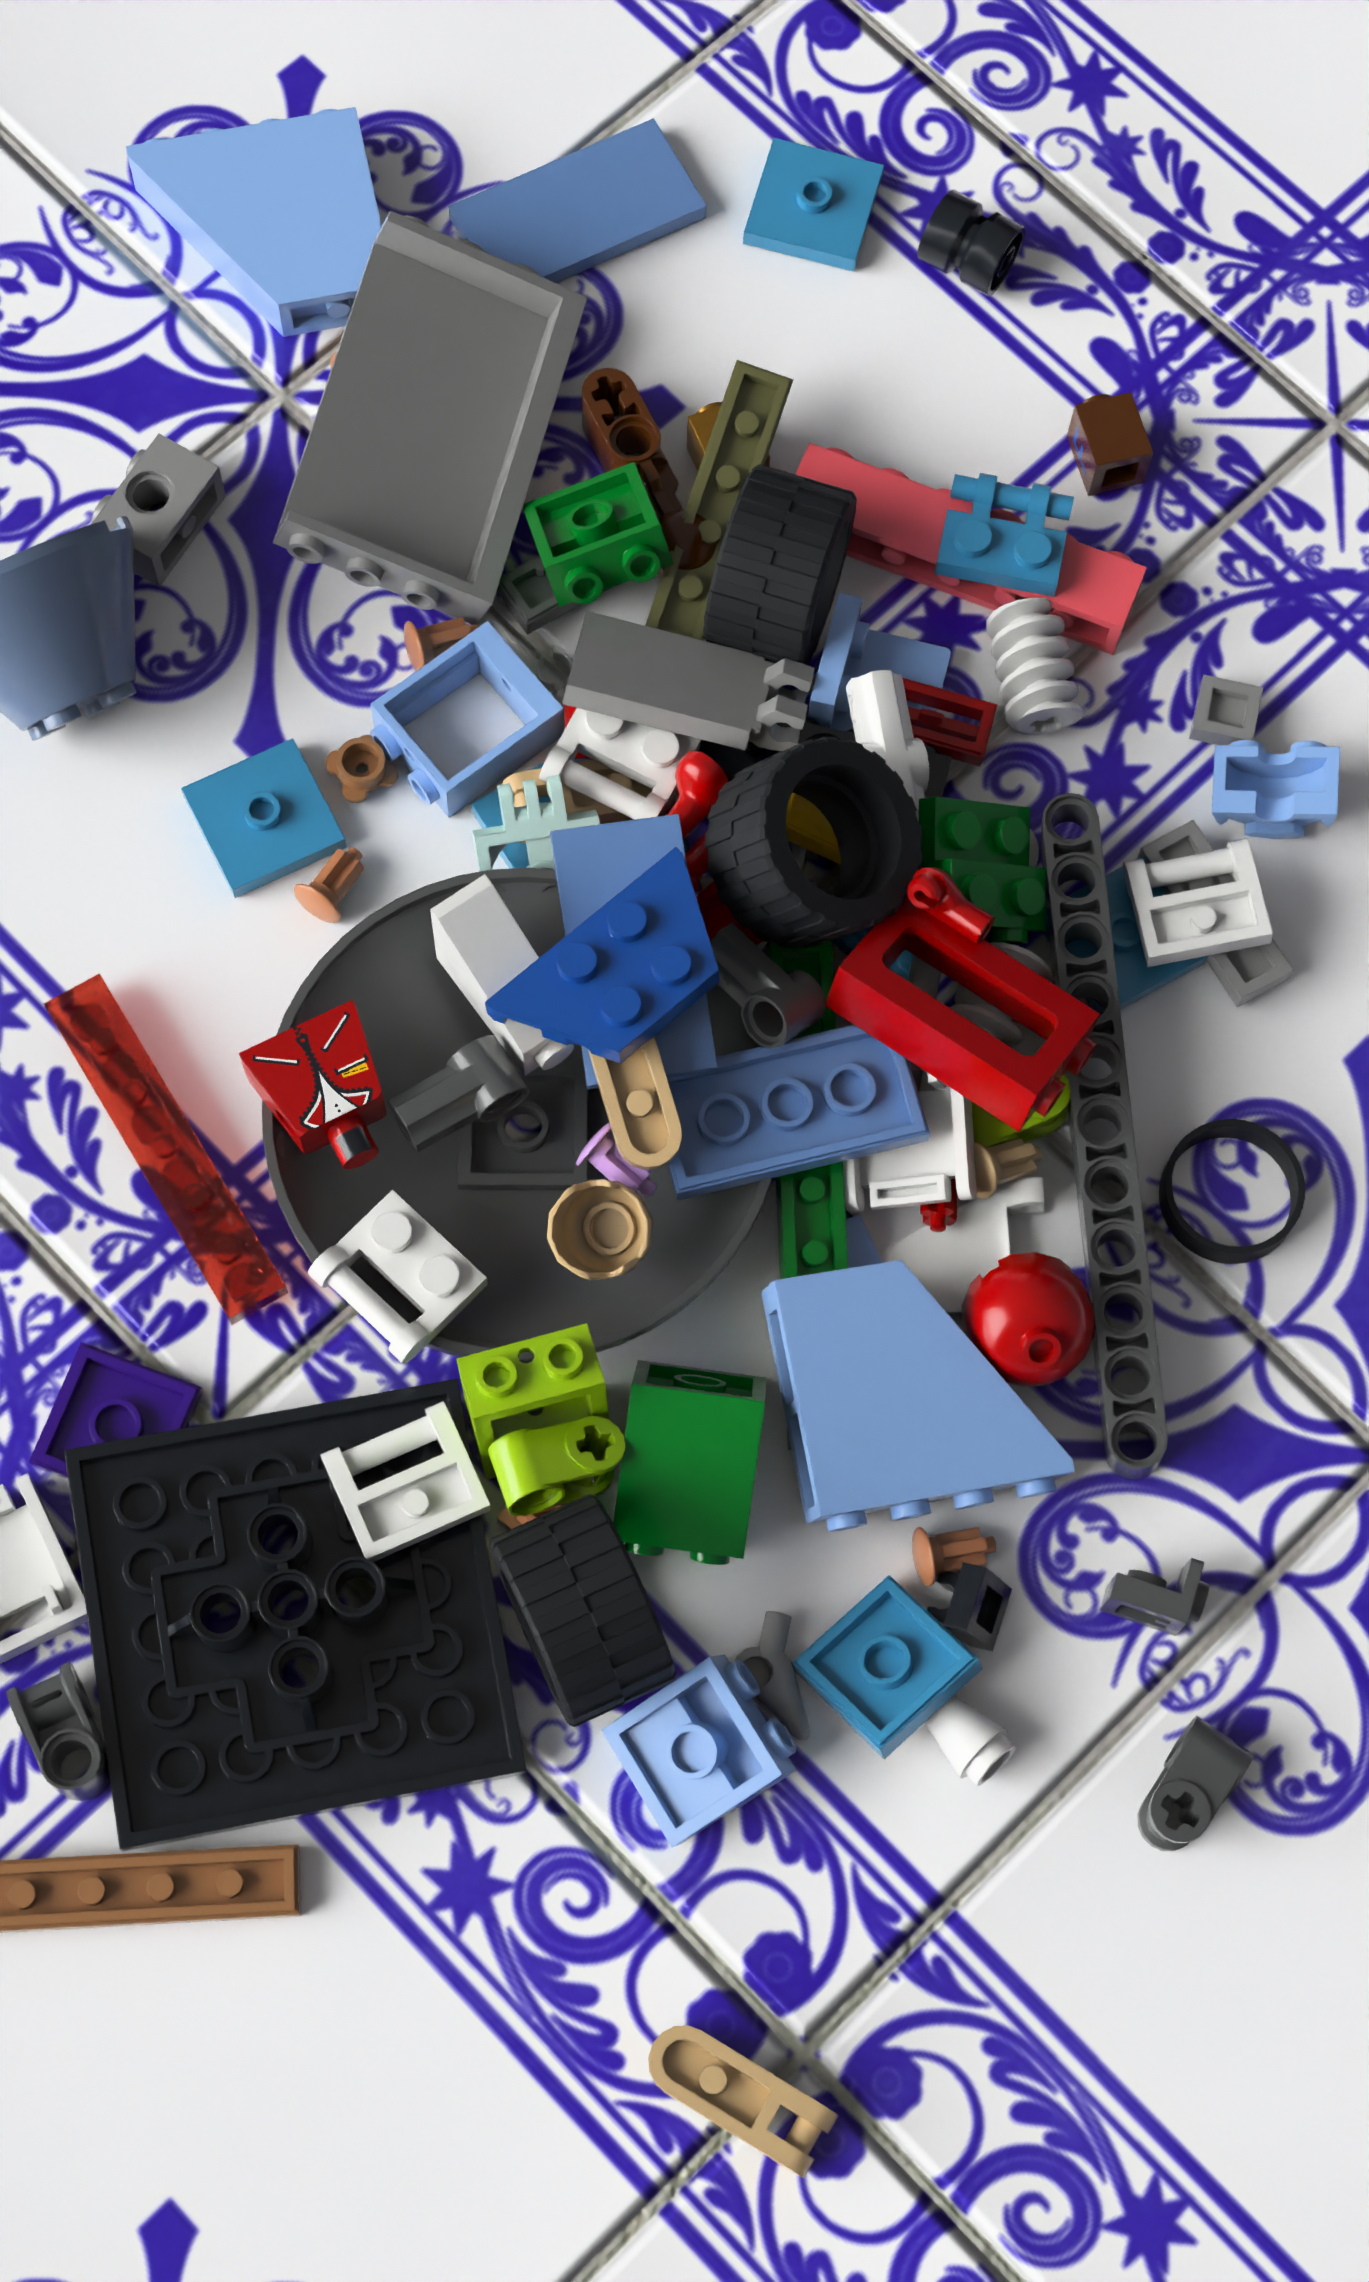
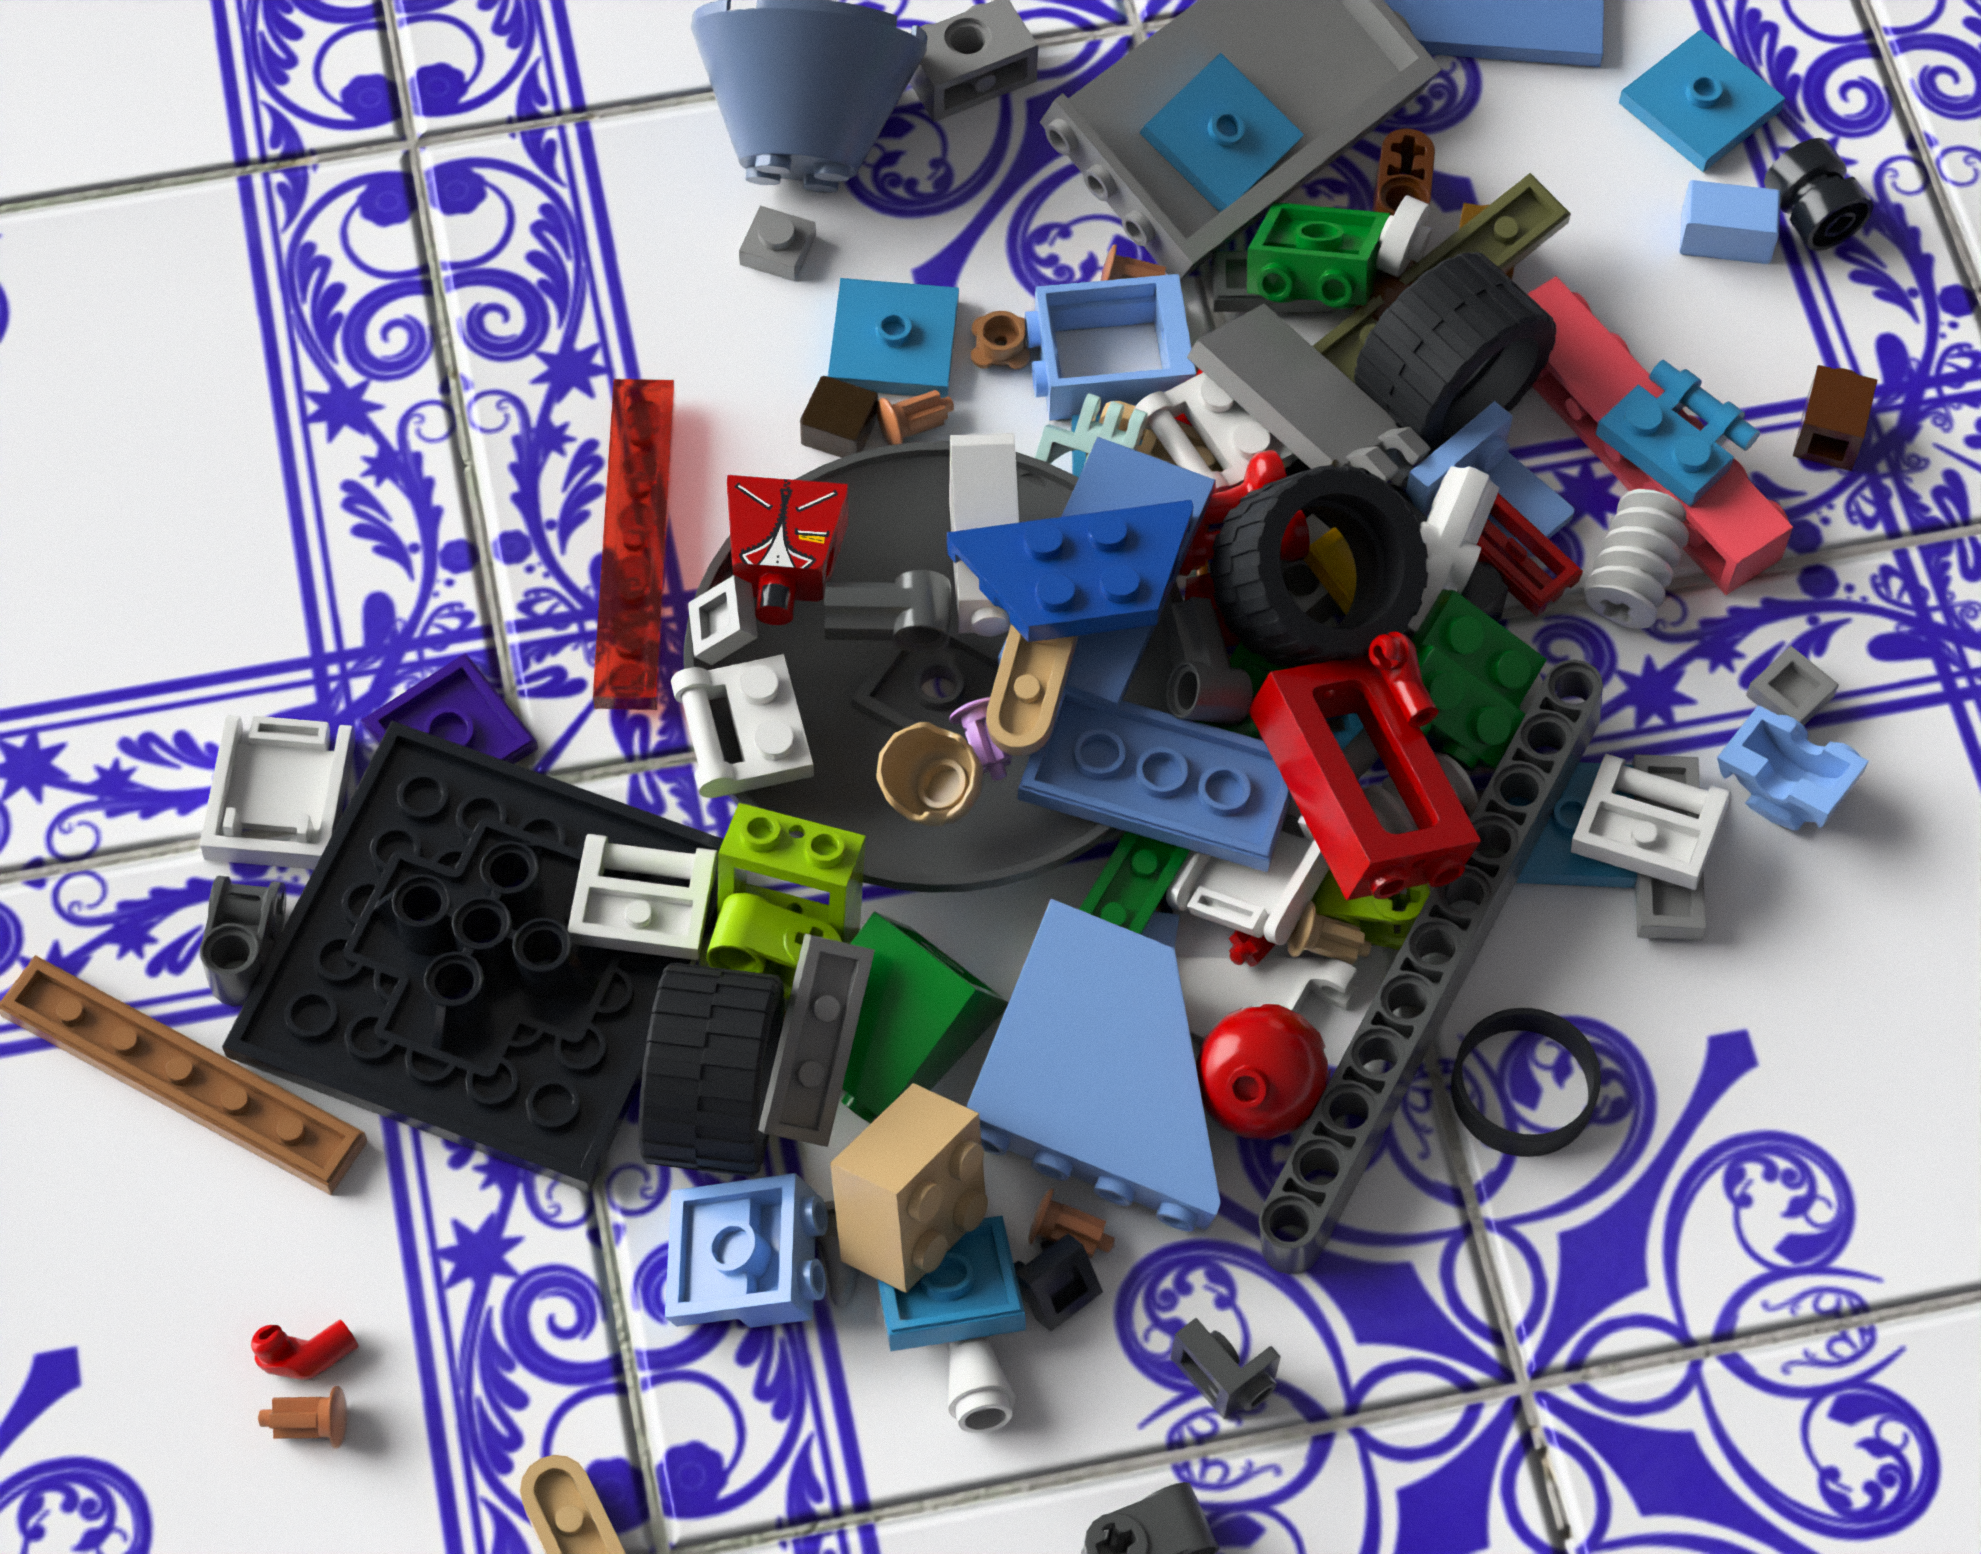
camera: 35 degrees right, 10 degrees down
(98, 784) = (777, 243): none -> light grey plate
(267, 923) = (838, 417): none -> dark brown piece
(319, 1190) = (723, 620): none -> light grey plate
(378, 2083) = (298, 1357): none -> red arm
(423, 2134) = (308, 1417): none -> nougat piece
(436, 464) = (1221, 133): none -> dark azure plate
(654, 1523) = (816, 1040): none -> light grey plate
(669, 480) = (1404, 236): none -> white wheel
(818, 1610) = (909, 1187): none -> tan brick
(911, 308) = (1730, 222): none -> light blue piece

